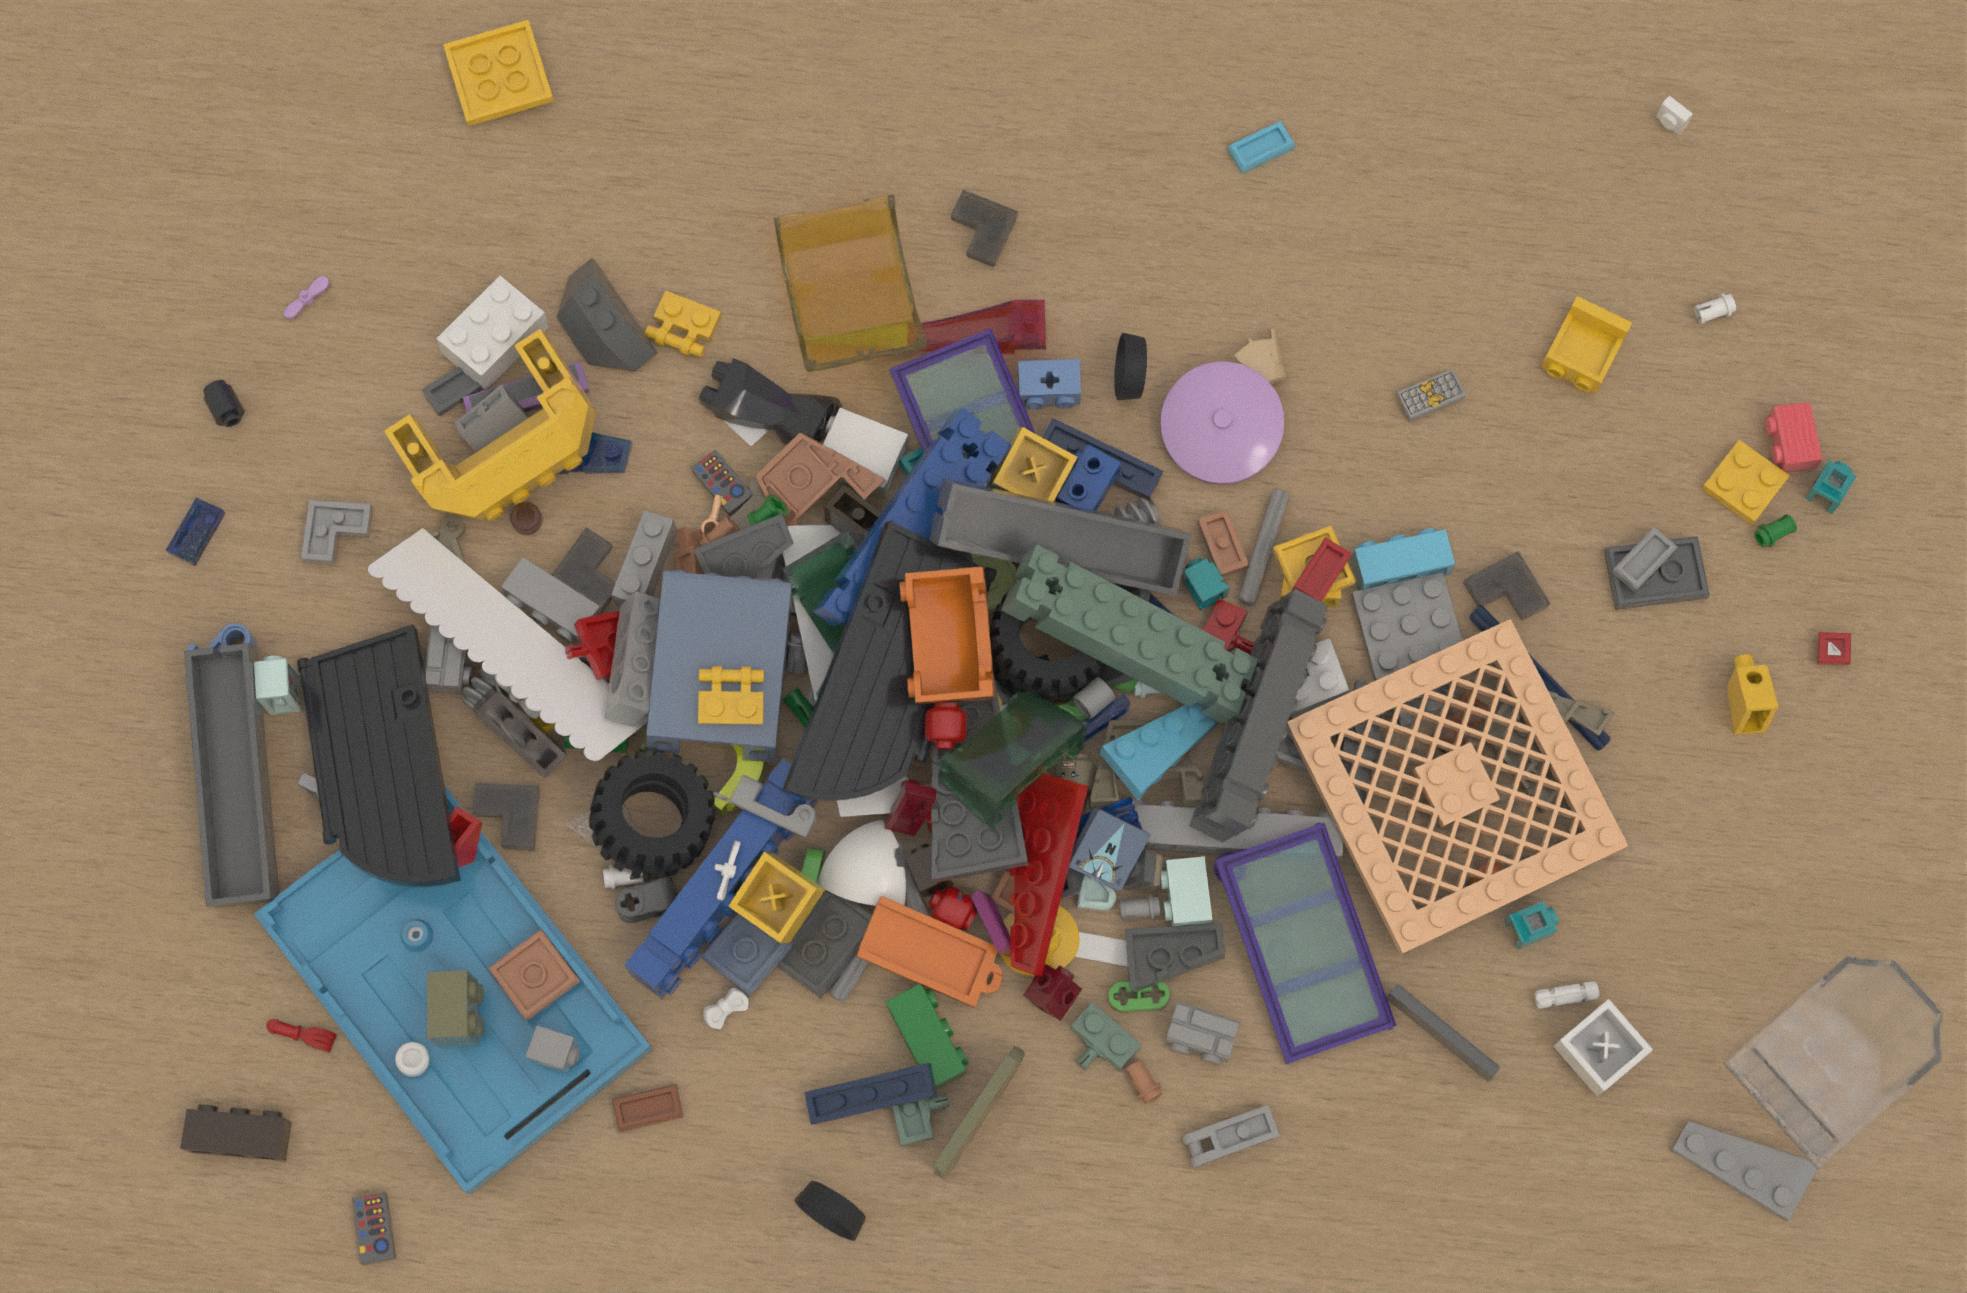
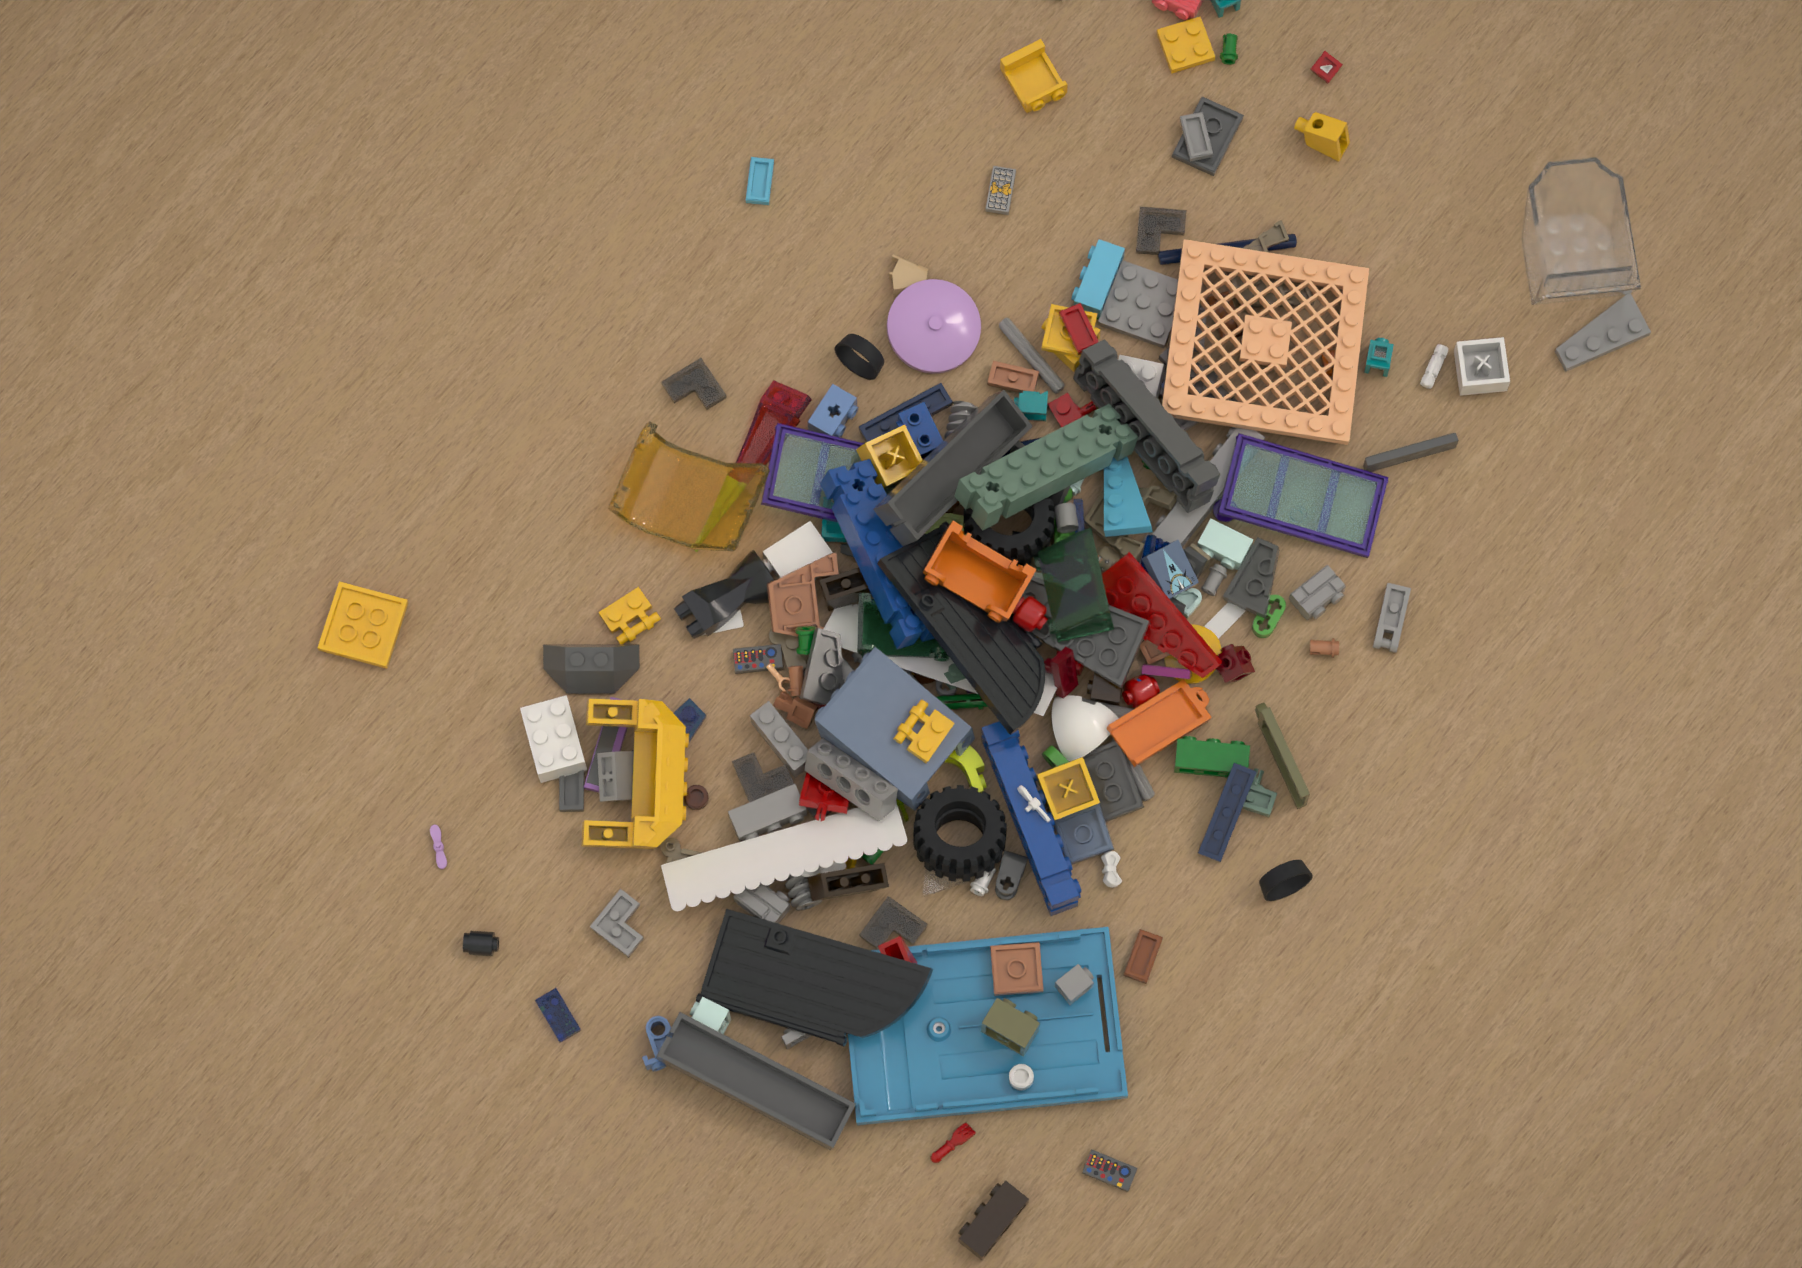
camera: 55 degrees left, 0 degrees up
(745, 797) = (993, 764): light grey piece -> none
(1103, 1039) = (1281, 654): sand green plate -> none

